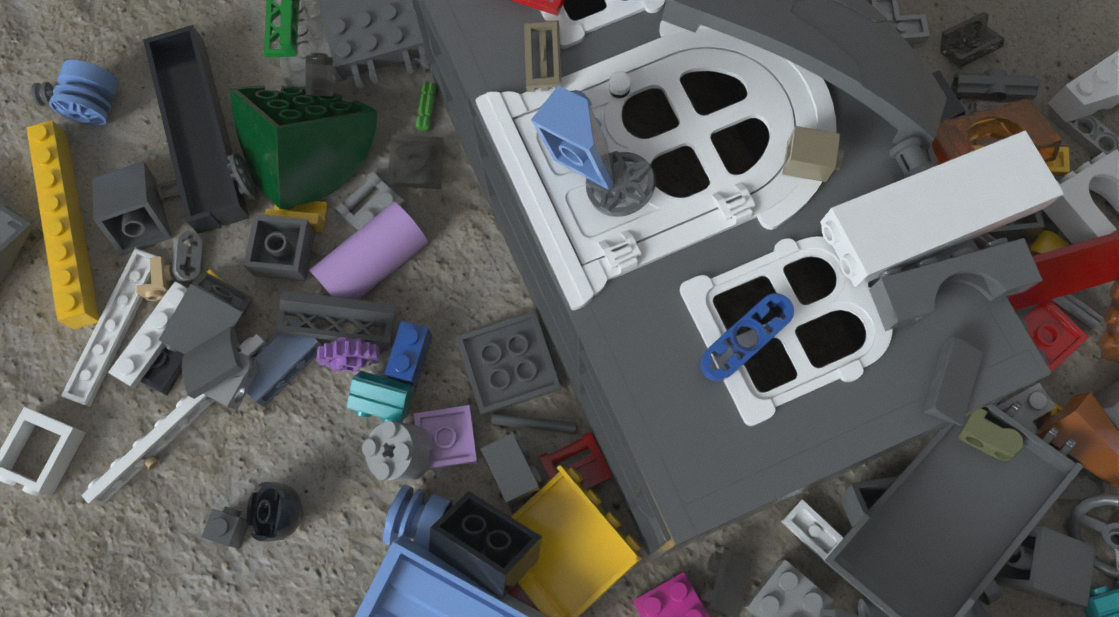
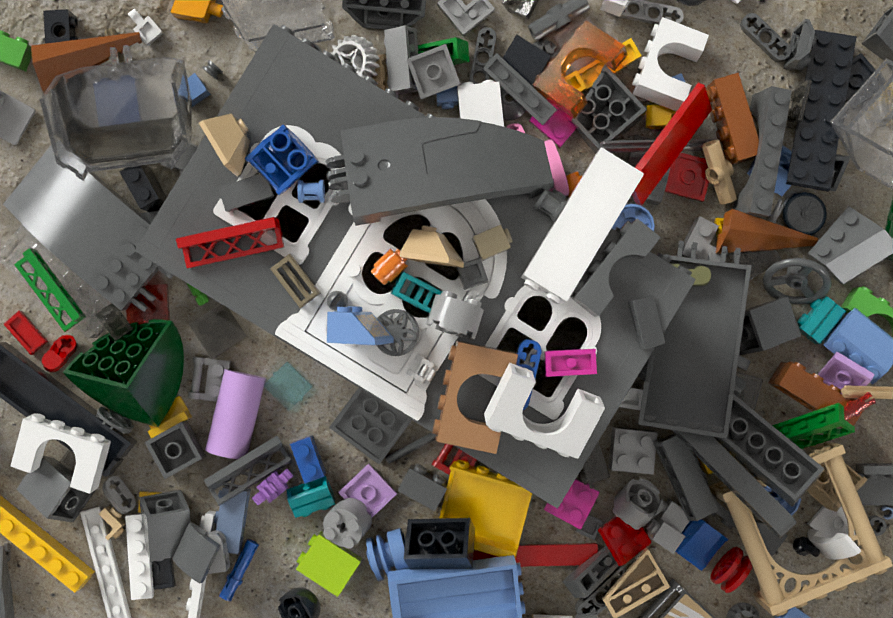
camera: 35 degrees left, 15 degrees up
(191, 179) = (88, 448): none -> white arch
(229, 45) = (25, 332): none -> red tile
(234, 429) = (234, 579): none -> blue pin
(248, 76) = (59, 353): none -> red piece
(343, 486) = (328, 564): none -> lime brick
(374, 95) = (156, 309): none -> clear red plate
(445, 267) = (288, 386): none -> clear light blue piece
(667, 104) = (389, 266): none -> orange brick
(677, 129) = (422, 285): none -> teal slope
(688, 269) = (453, 426): none -> medium nougat arch
(712, 198) = (455, 315): none -> light grey brick
(728, 111) = (431, 248): none -> tan slope
(753, 448) = (565, 435): none -> white arch
(762, 177) = (472, 274): none -> dark grey tile
(820, 361) = (570, 362): none -> dark pink plate
(1090, 349) = (719, 171): none -> tan piece

